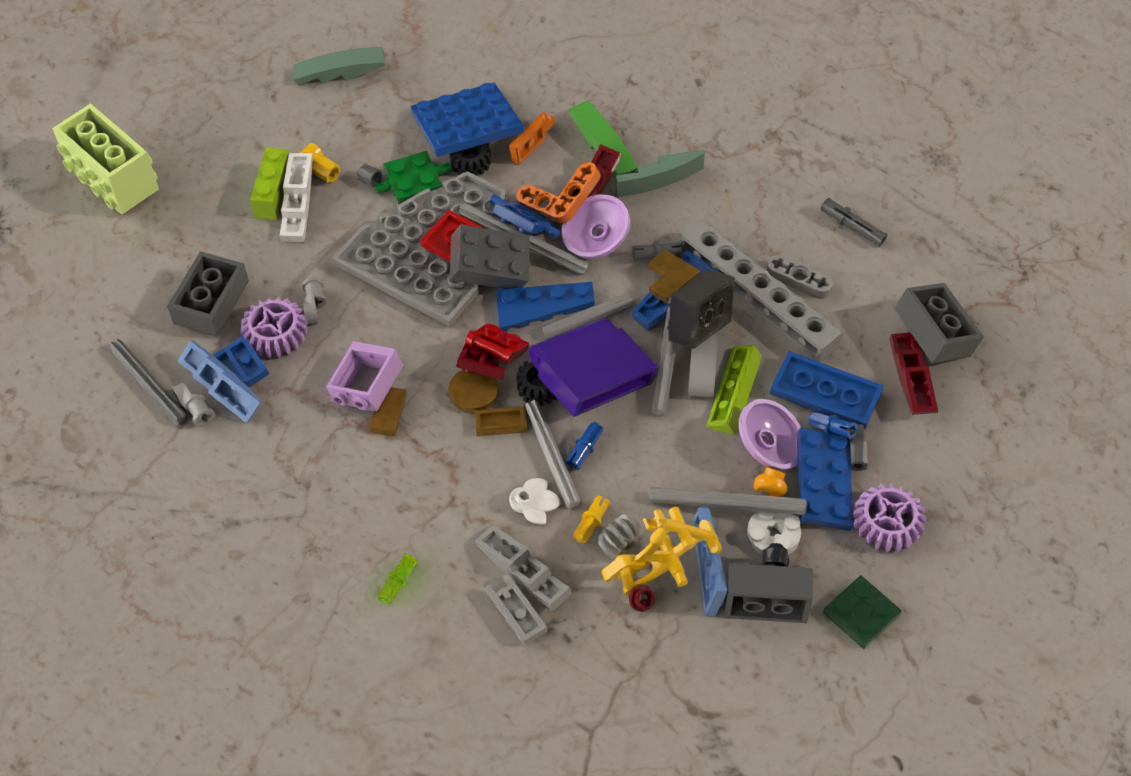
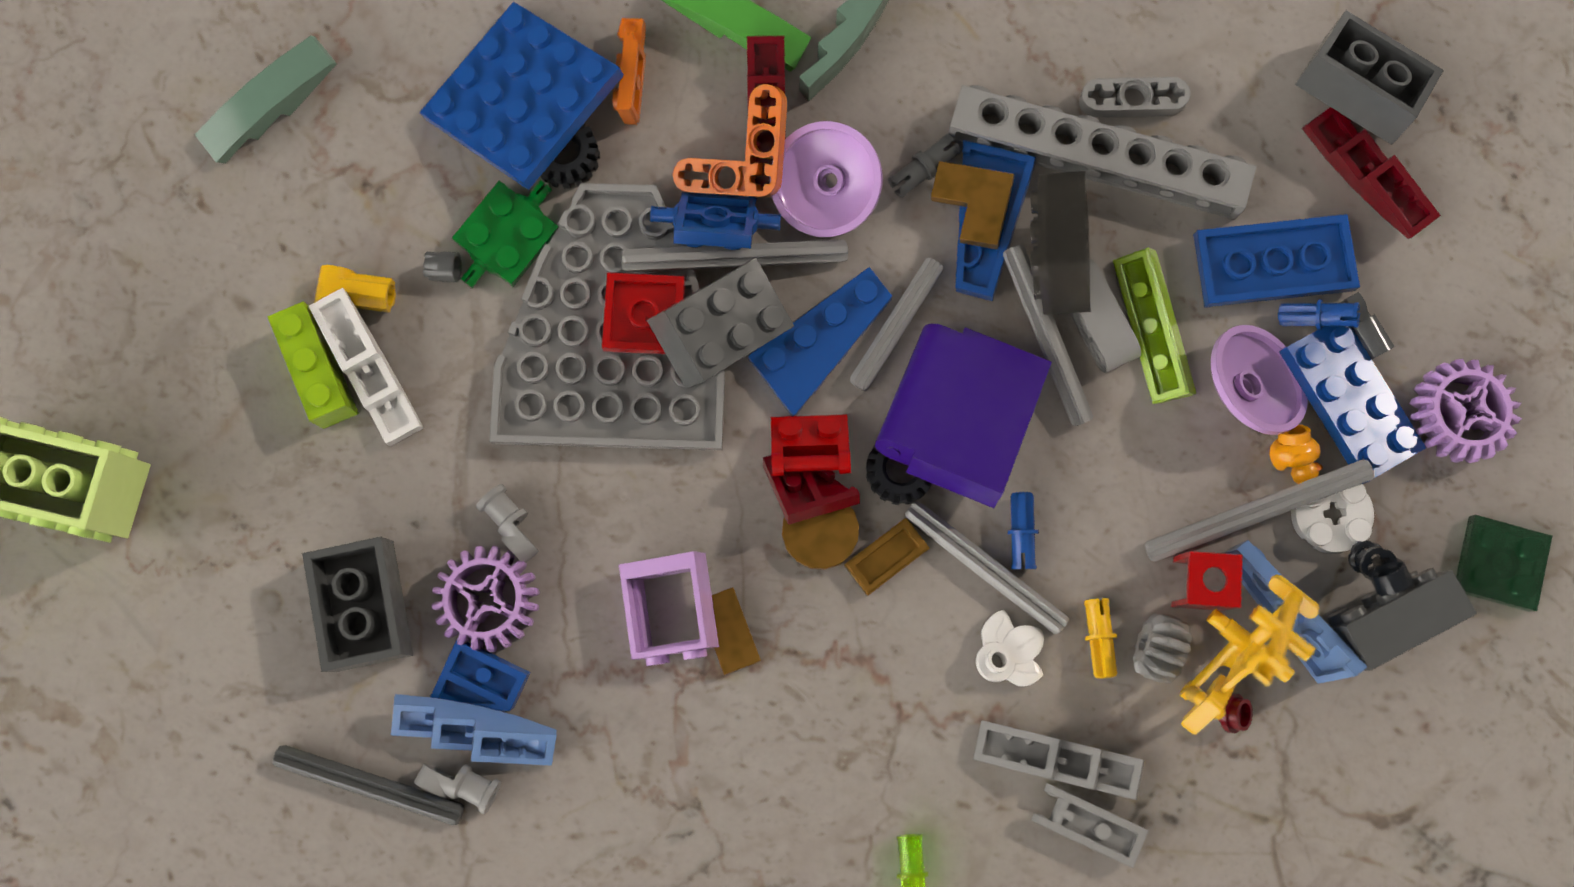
camera: 30 degrees left, 25 degrees up
(667, 499) = (1198, 594): none -> red piece

